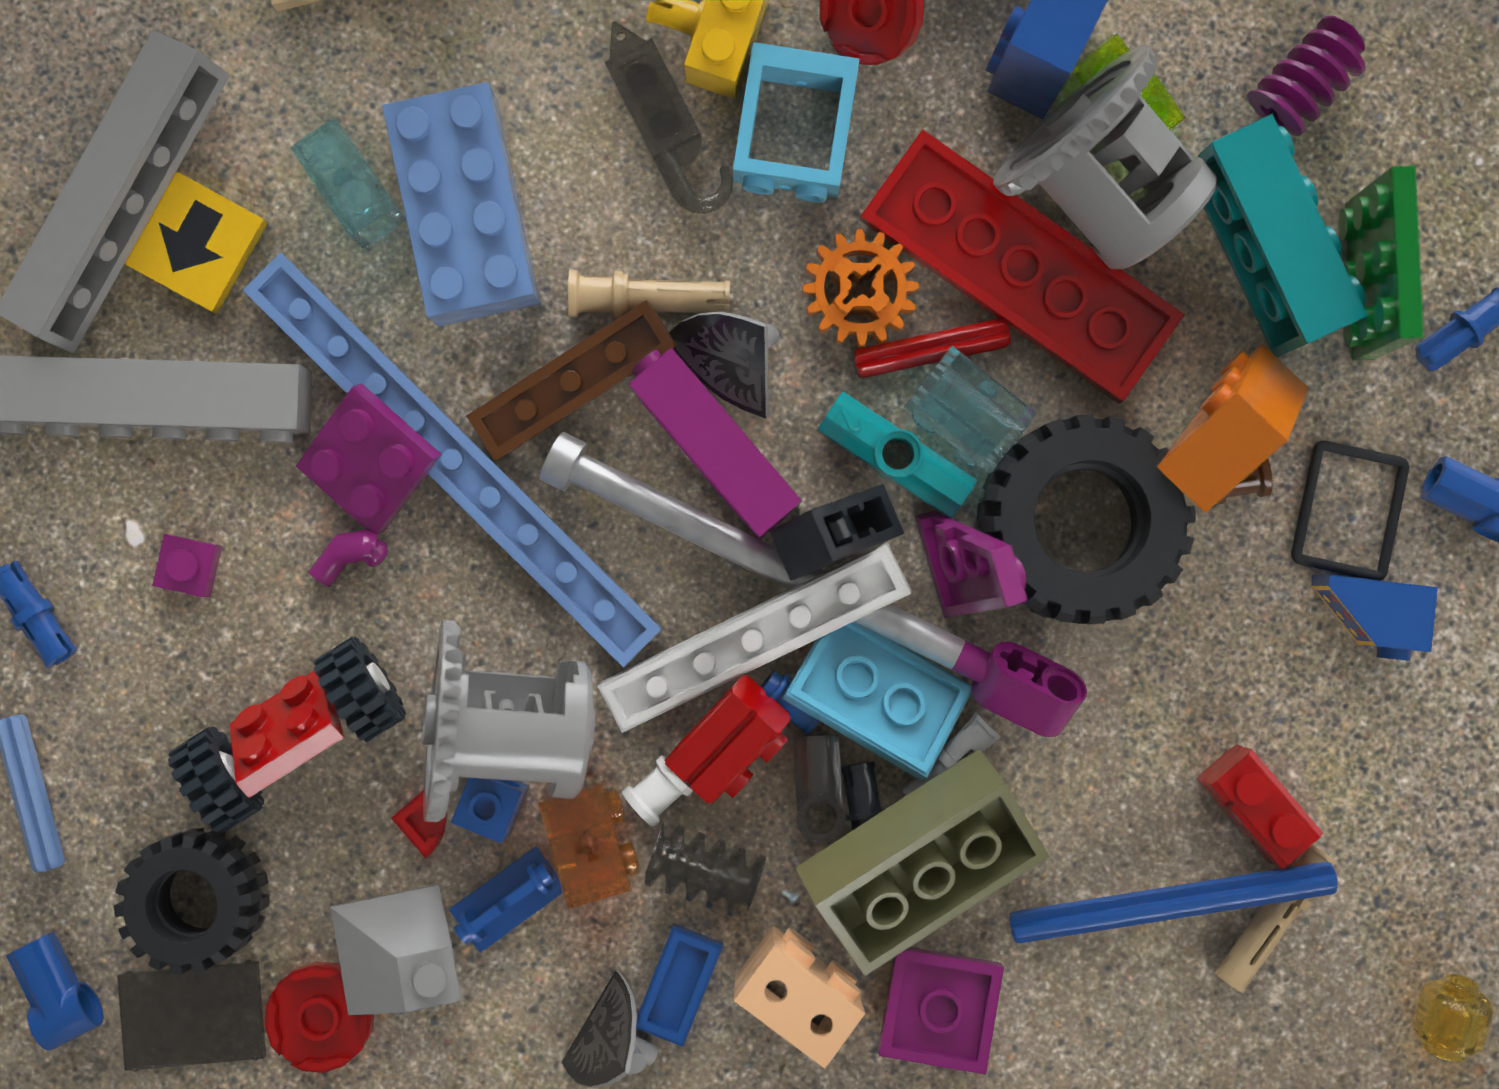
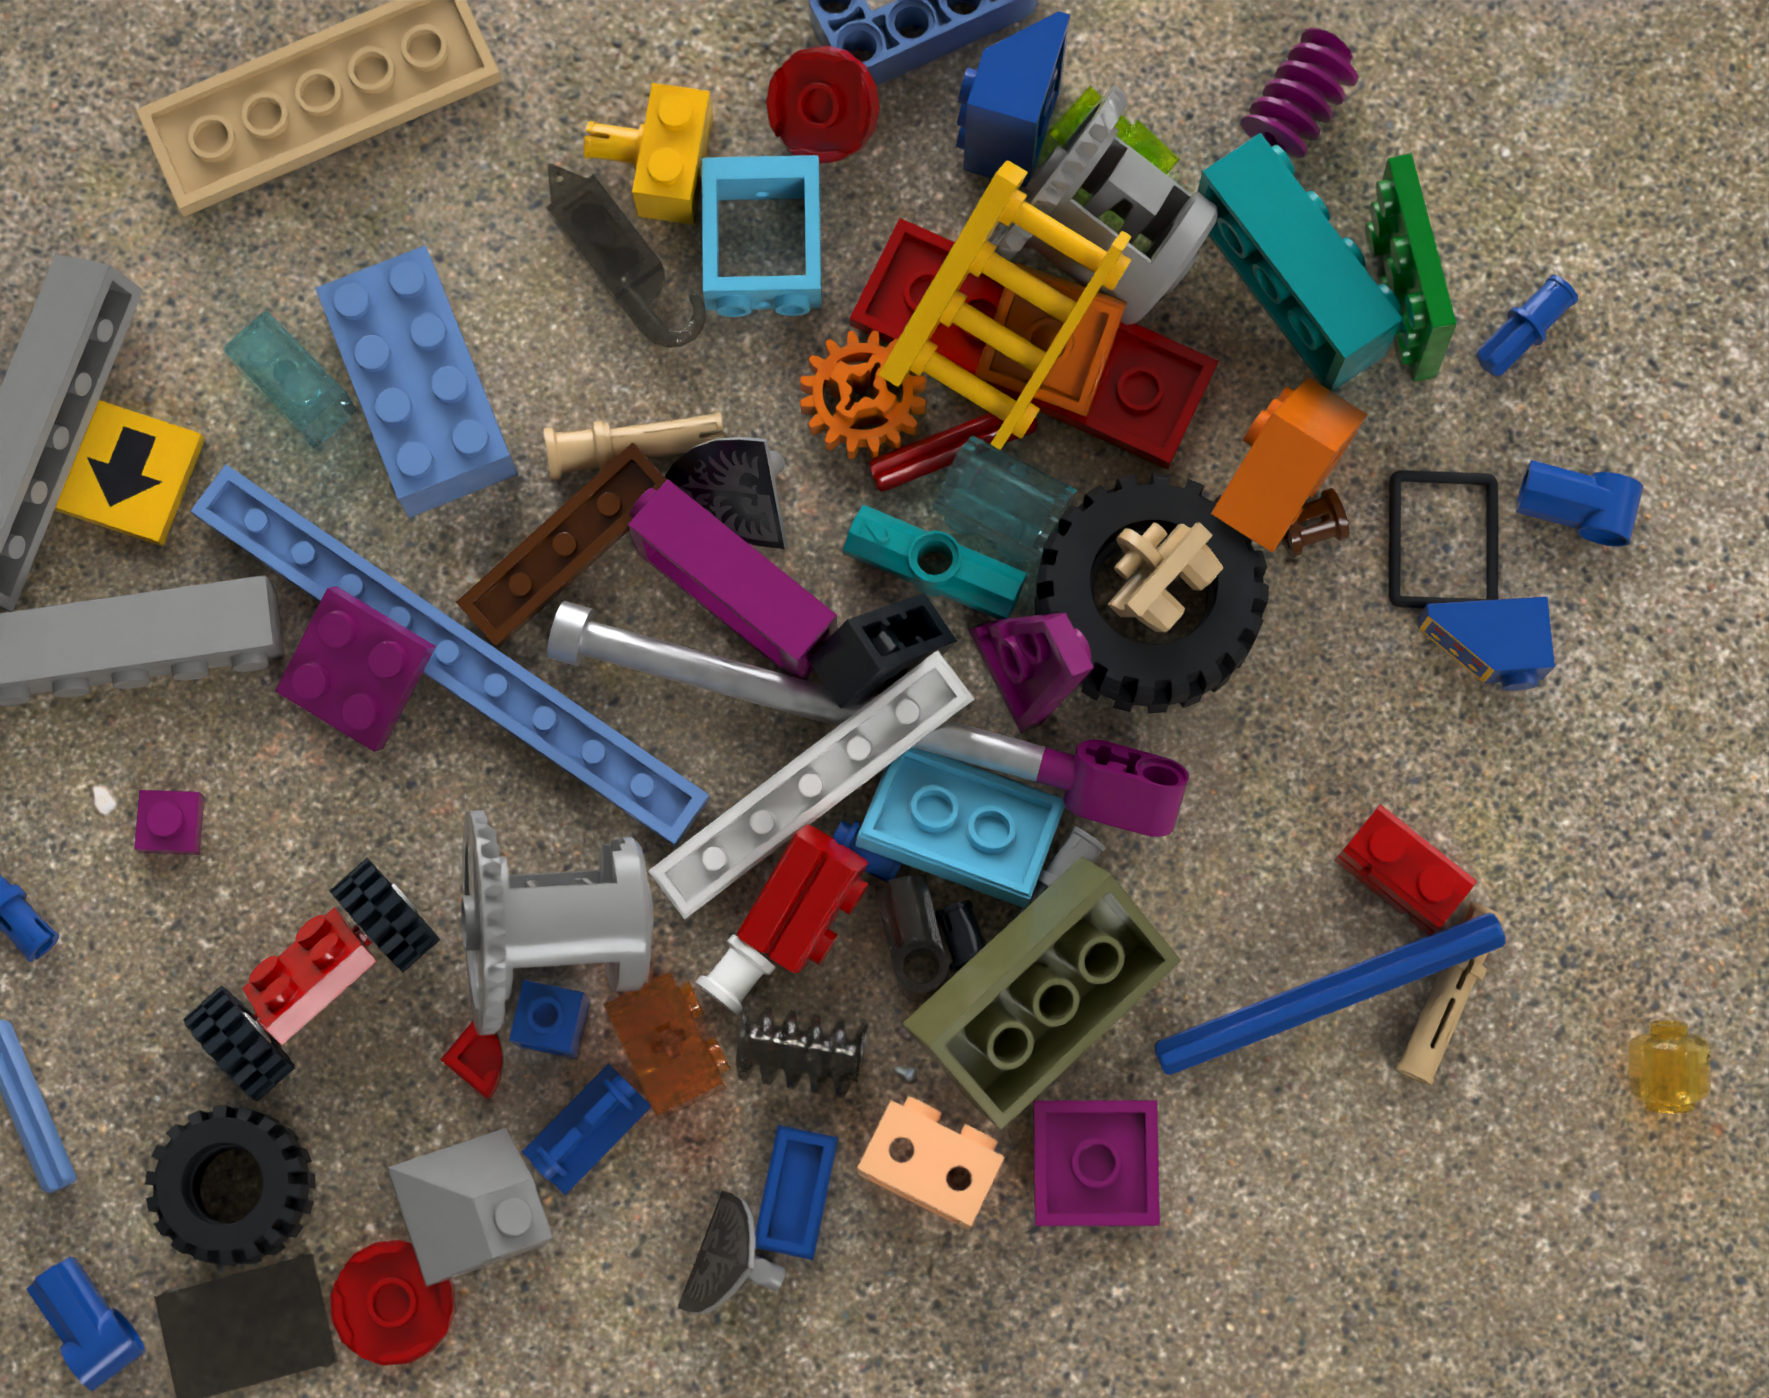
camera: 10 degrees left, 10 degrees down
(345, 549) = (346, 771): magenta arm -> none
(991, 189) = (977, 255): none -> yellow fence
(1040, 271) = (1082, 361): none -> orange tile
(1099, 510) = (1179, 554): none -> tan hips

